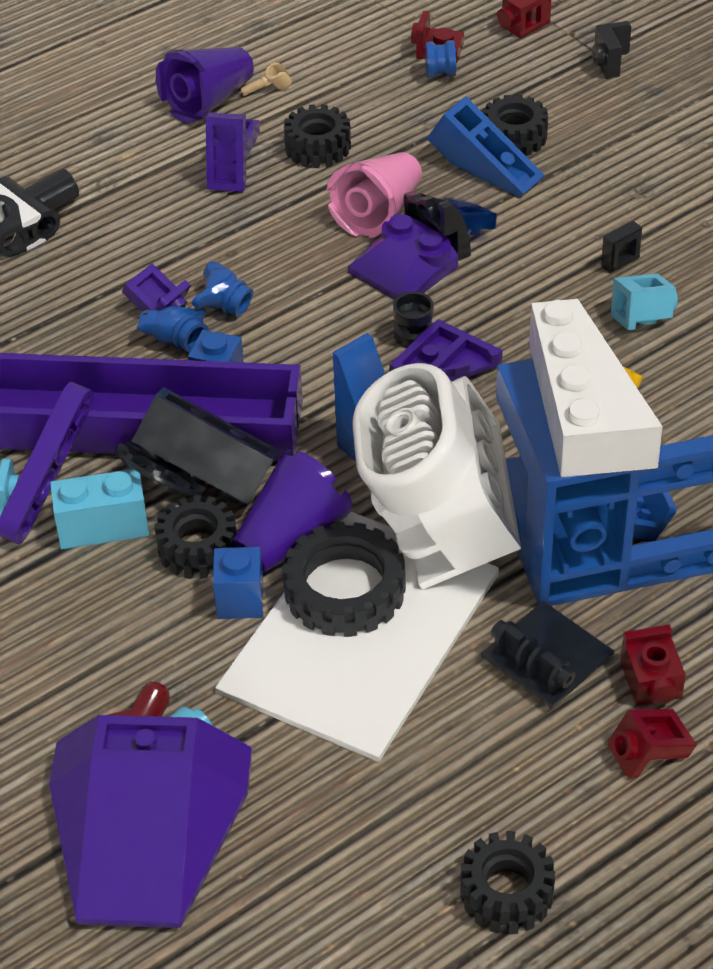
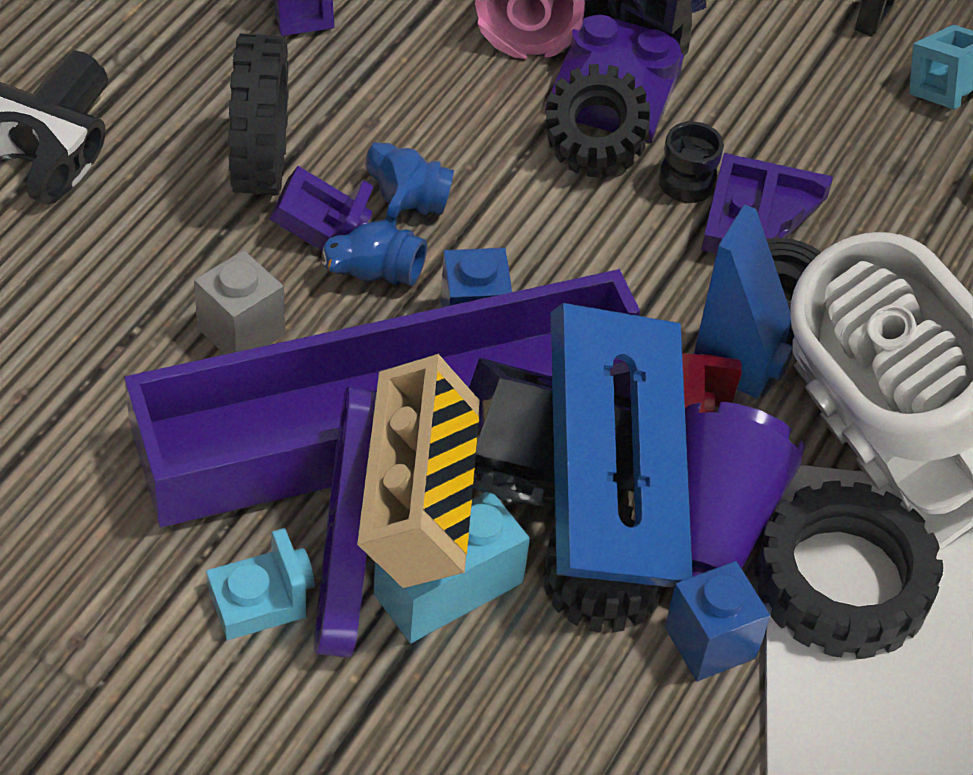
camera: 30 degrees left, 5 degrees up
(70, 330) = (239, 305): none -> light grey brick
(82, 437) = (420, 472): none -> tan brick
(122, 220) = (258, 114): none -> black tyre
(173, 503) = (588, 527): none -> blue piece
(328, 448) = (710, 380): none -> dark red bracket
(359, 262) = (597, 90): none -> black tyre

